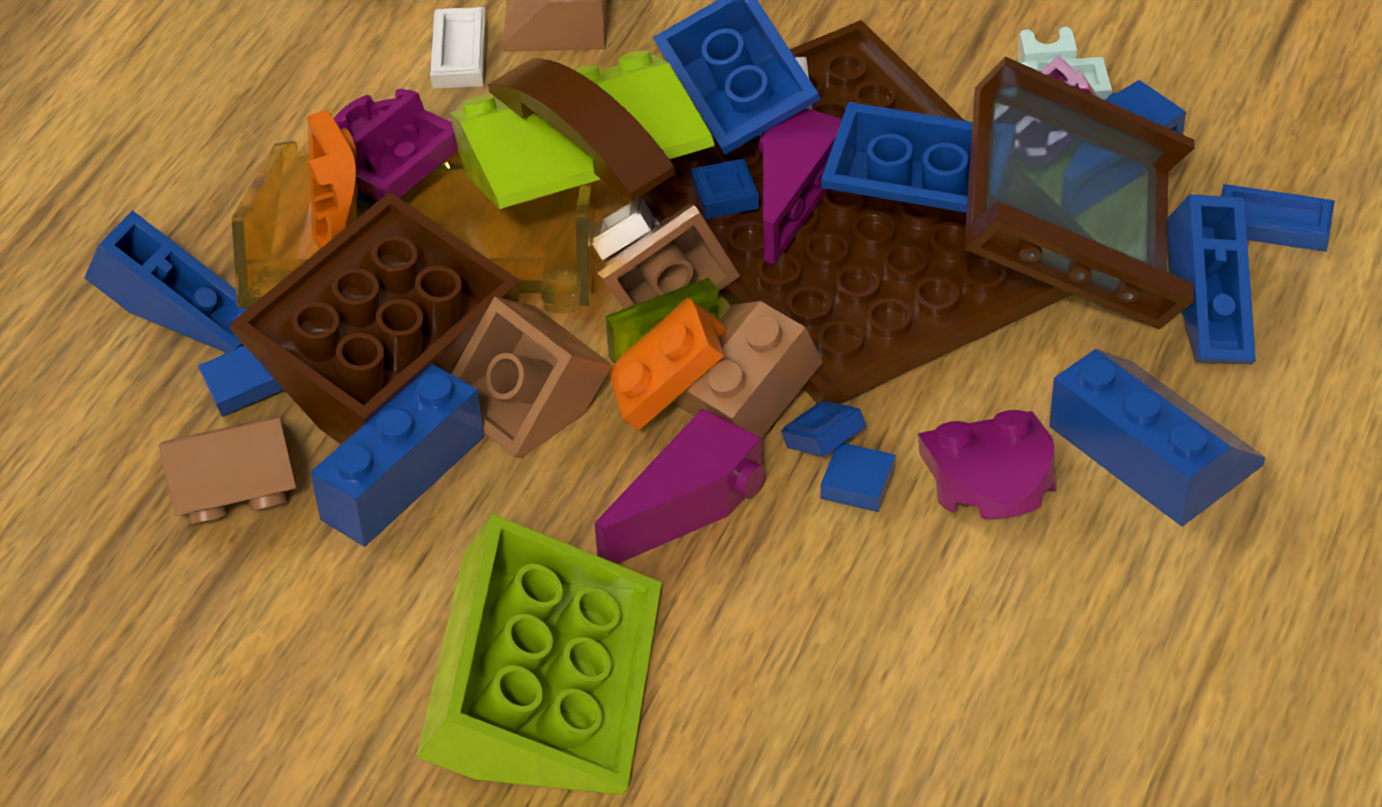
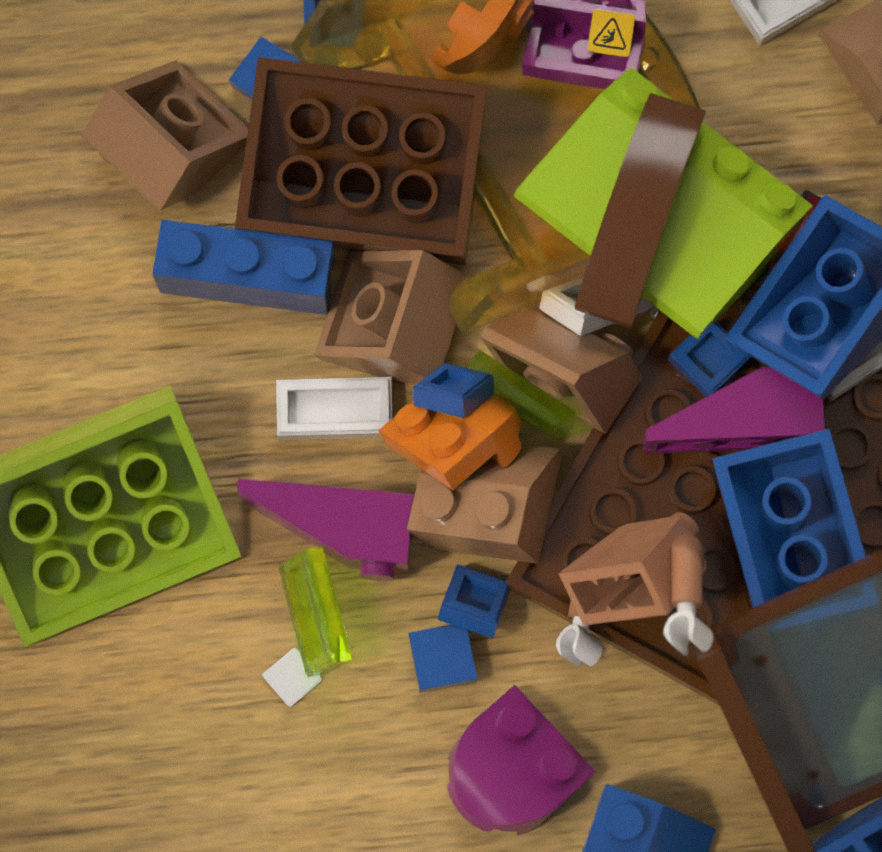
camera: 60 degrees right, 30 degrees up
(407, 120) = (611, 33): none -> yellow sticker
(573, 461) = (333, 408): none -> white tile
(630, 339) = (453, 390): none -> blue tile
(755, 537) = (314, 612): none -> clear neon green tile
(801, 597) = (289, 678): none -> white sticker
(886, 267) = (635, 575): none -> nougat torso

